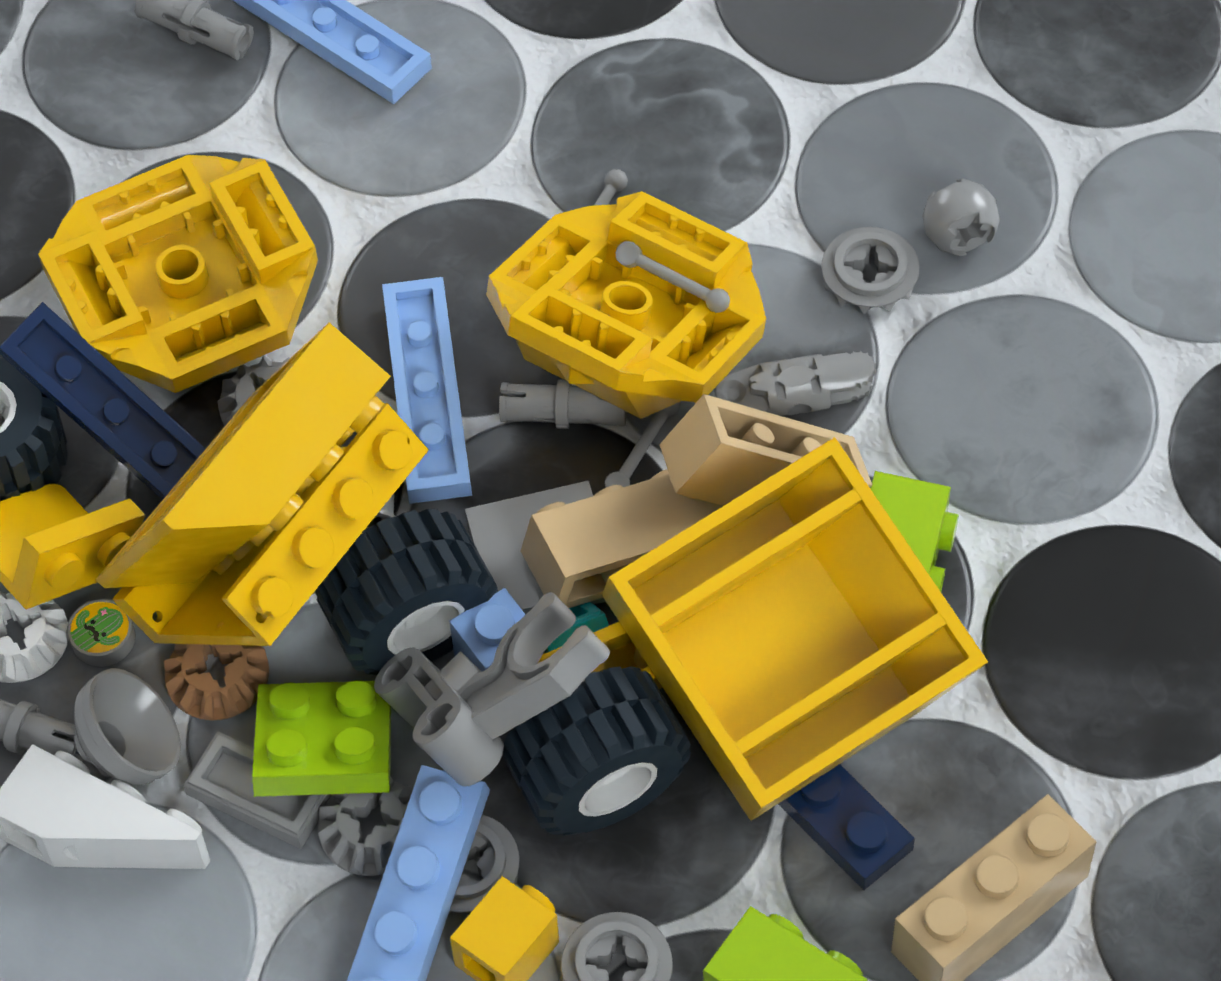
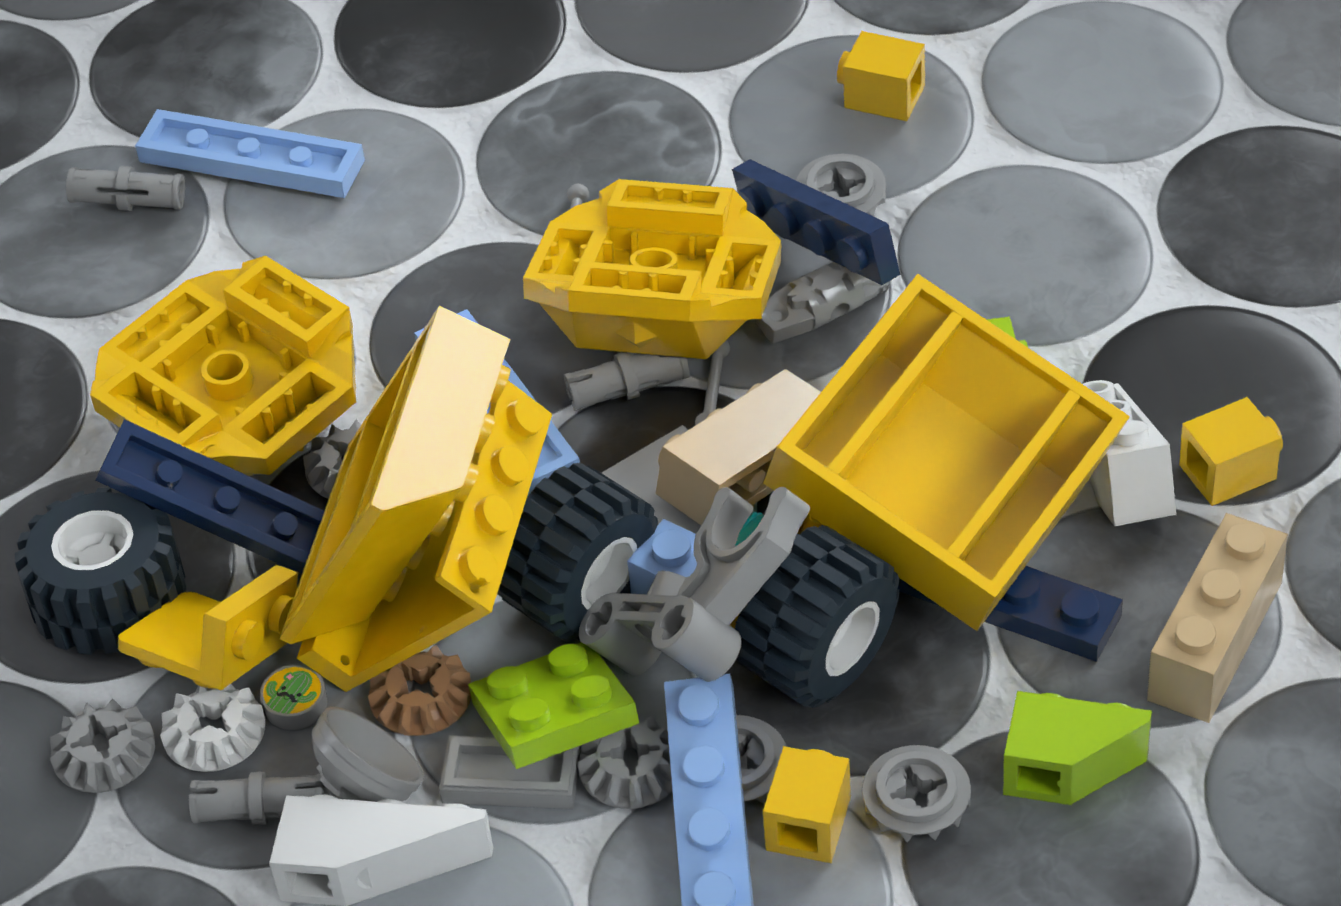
camera: 20 degrees left, 10 degrees down
(631, 255) = (637, 229): light grey hinge -> none
(730, 448) = (811, 336): tan brick -> none
(814, 316) = (818, 222): none -> dark blue plate
(961, 217) = (900, 122): light grey piece -> none
(973, 149) = (882, 75): none -> yellow brick
(992, 699) = (1136, 472): none -> white slope
(1104, 716) = (1230, 450): none -> yellow brick

